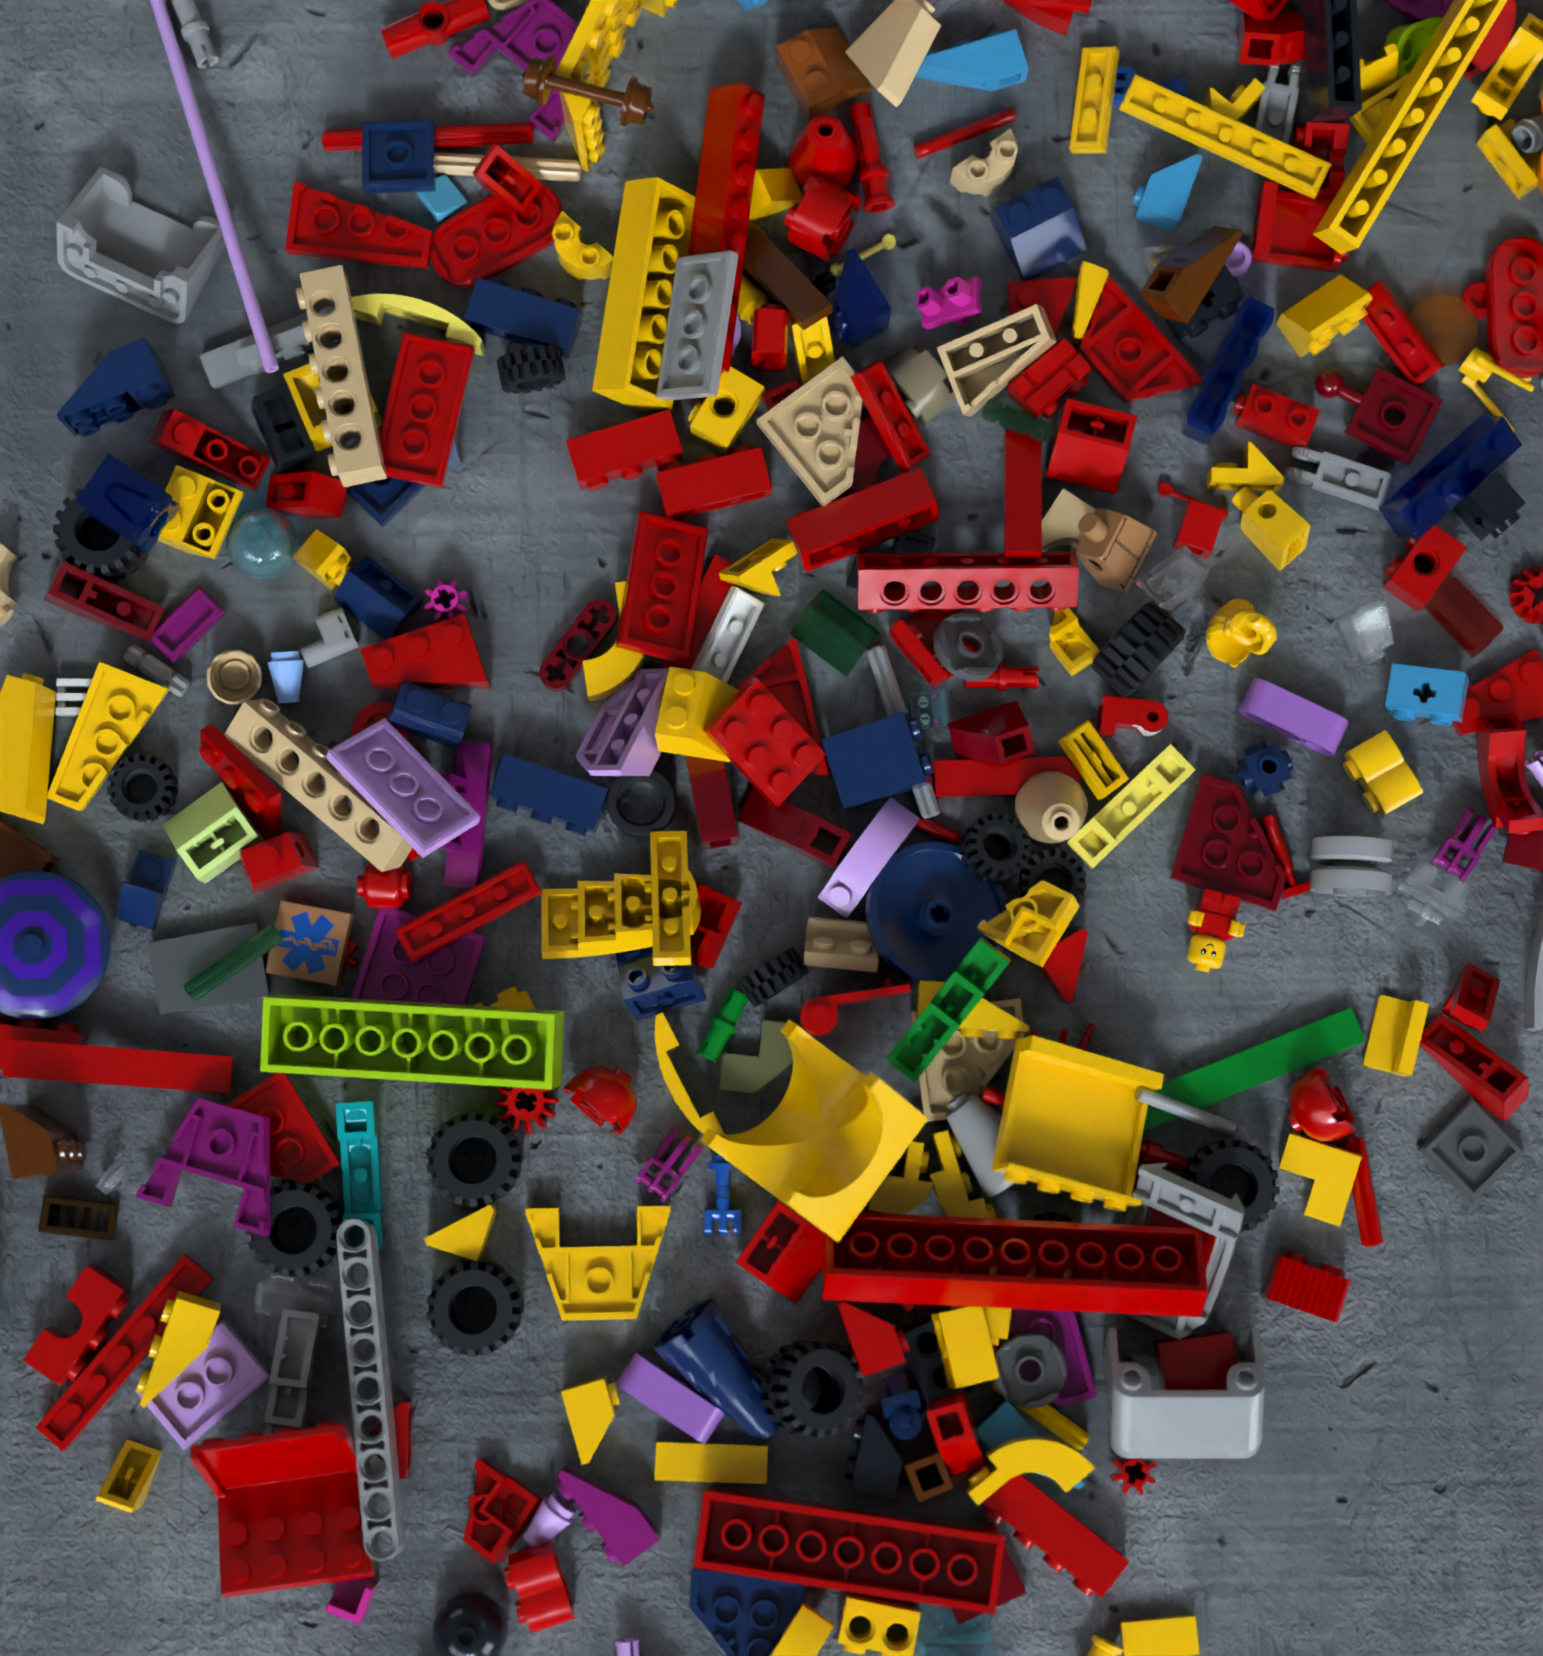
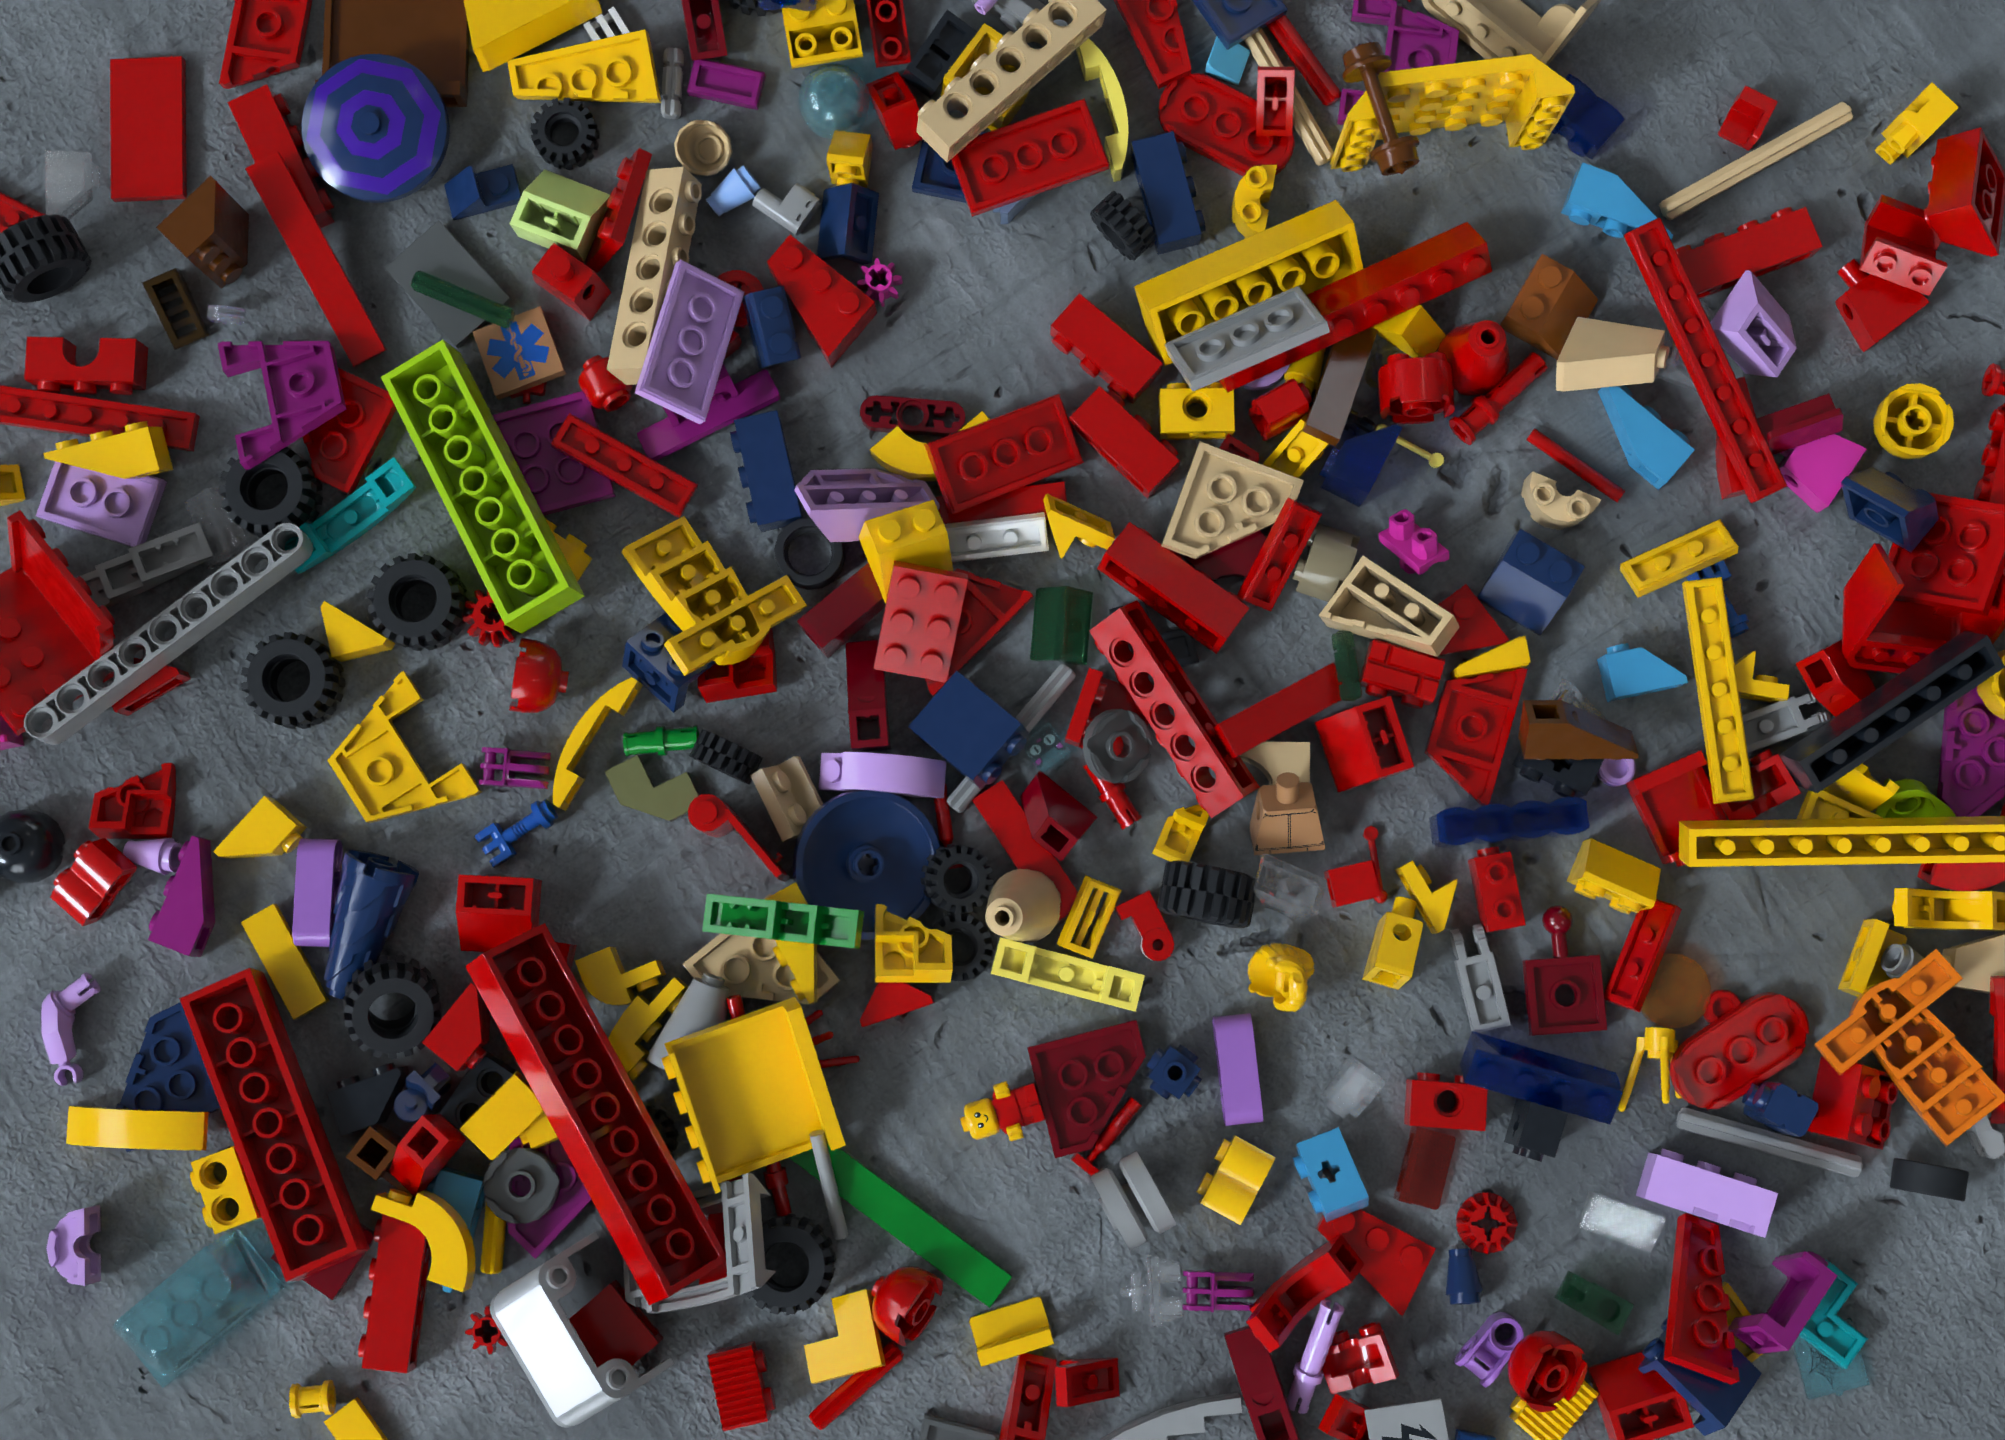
camera: 65 degrees right, 0 degrees up
(825, 1139) = (604, 885): yellow piece -> none

